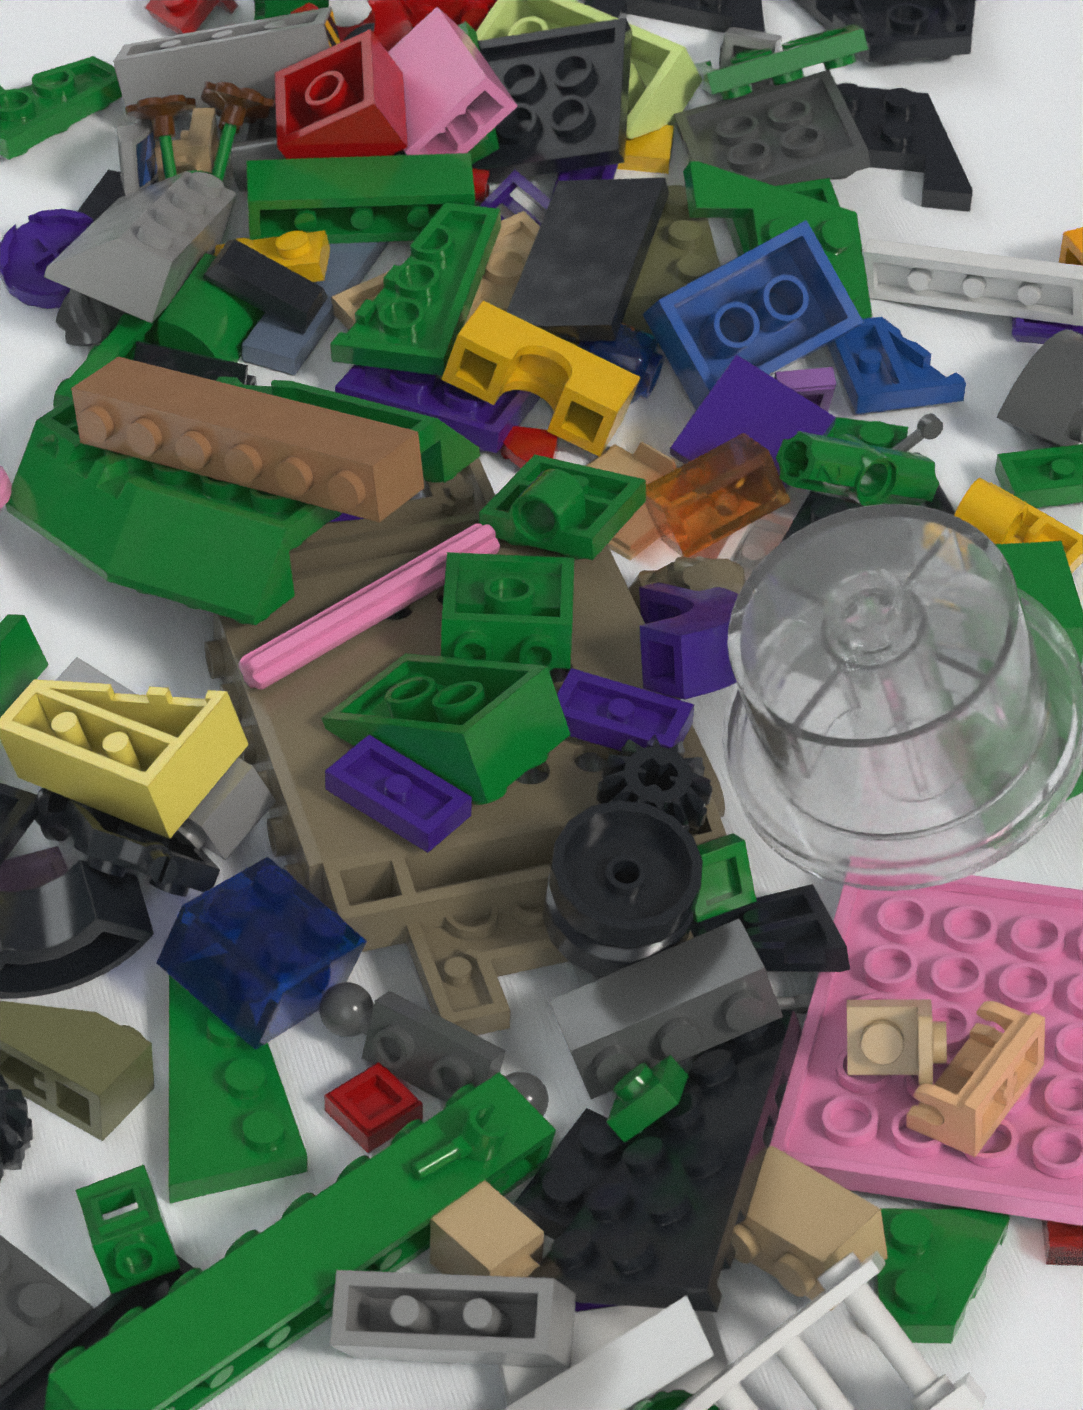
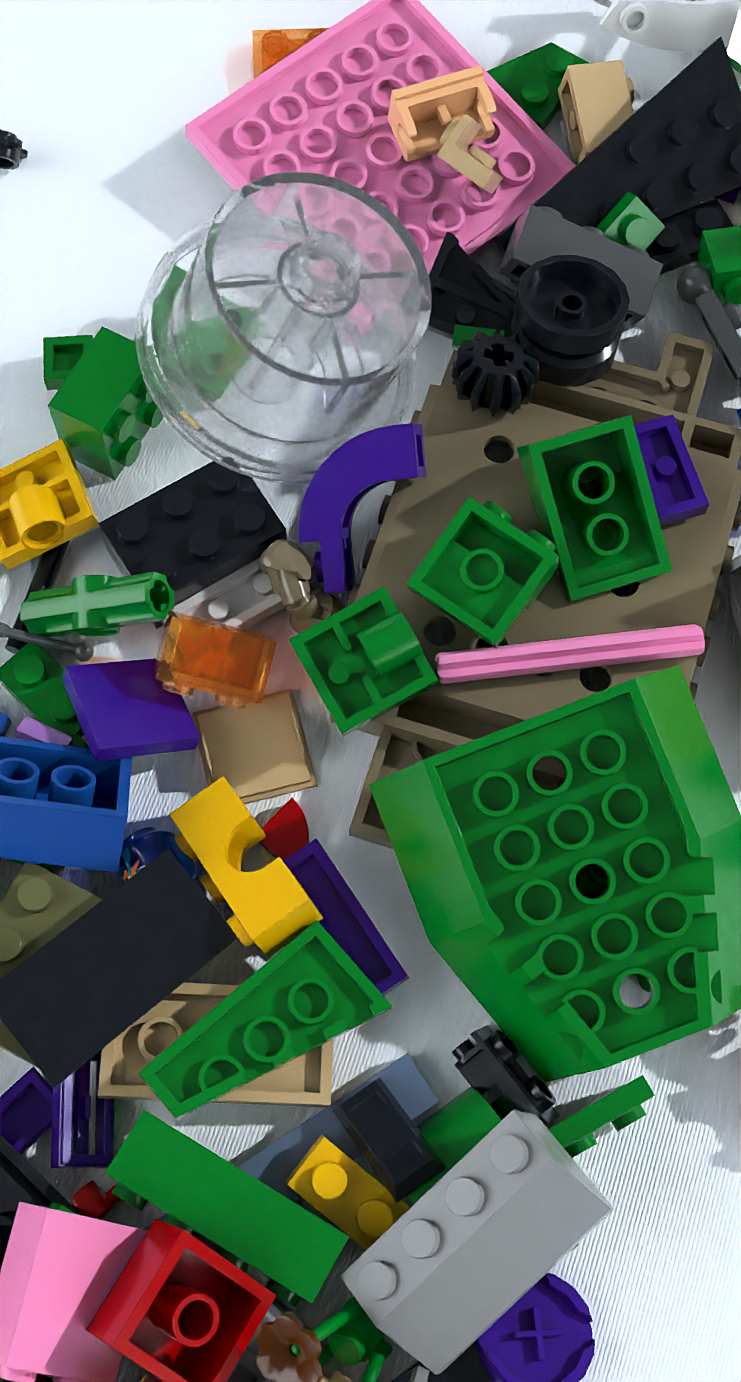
camera: 145 degrees left, 25 degrees up
(249, 438) = (607, 803): medium nougat brick -> none
(614, 712) = (469, 447): dark purple plate -> none

